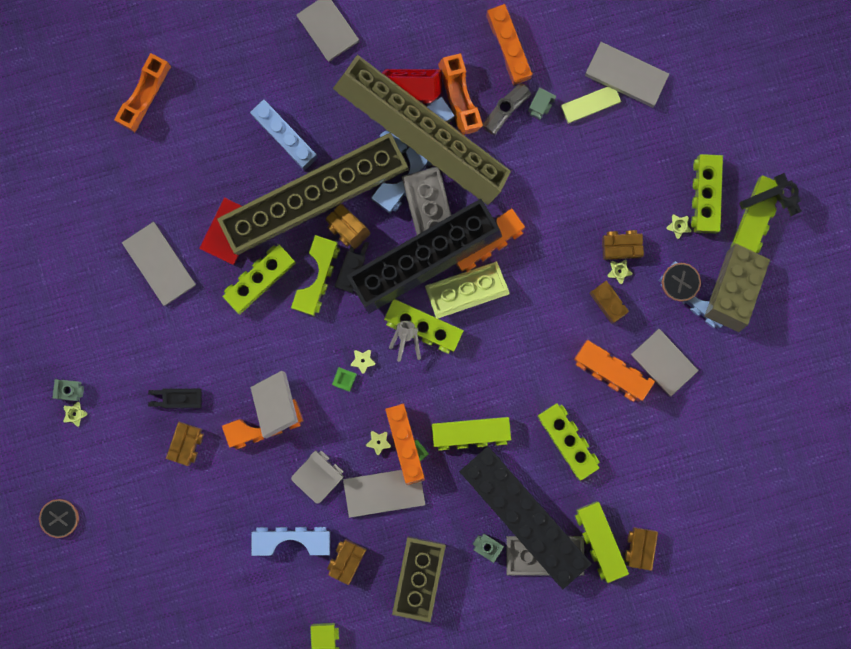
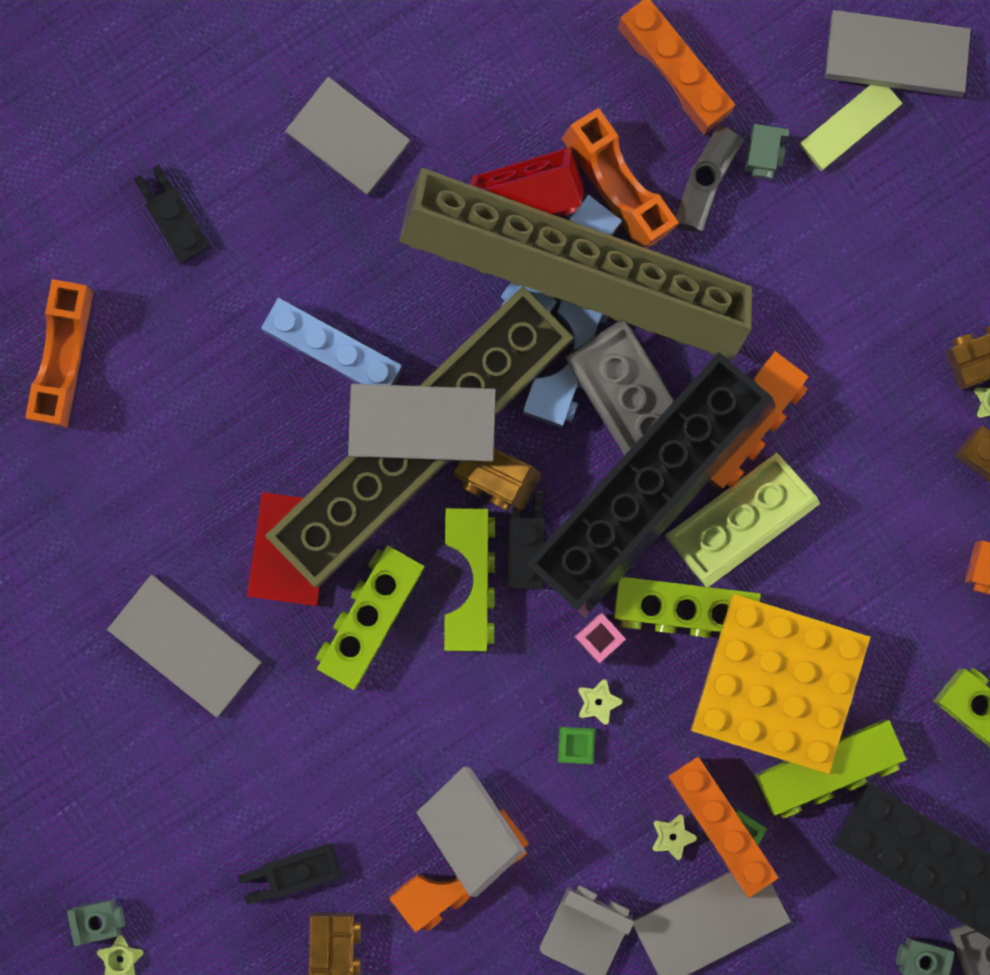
camera: 20 degrees left, 0 degrees up
(224, 42) = (173, 218): none -> black hinge
(315, 185) = (421, 422): none -> light grey tile
(373, 327) = (599, 638): none -> bright pink brick
(405, 331) = (661, 628): light grey plant -> none
(458, 379) = (780, 683): none -> yellow plate

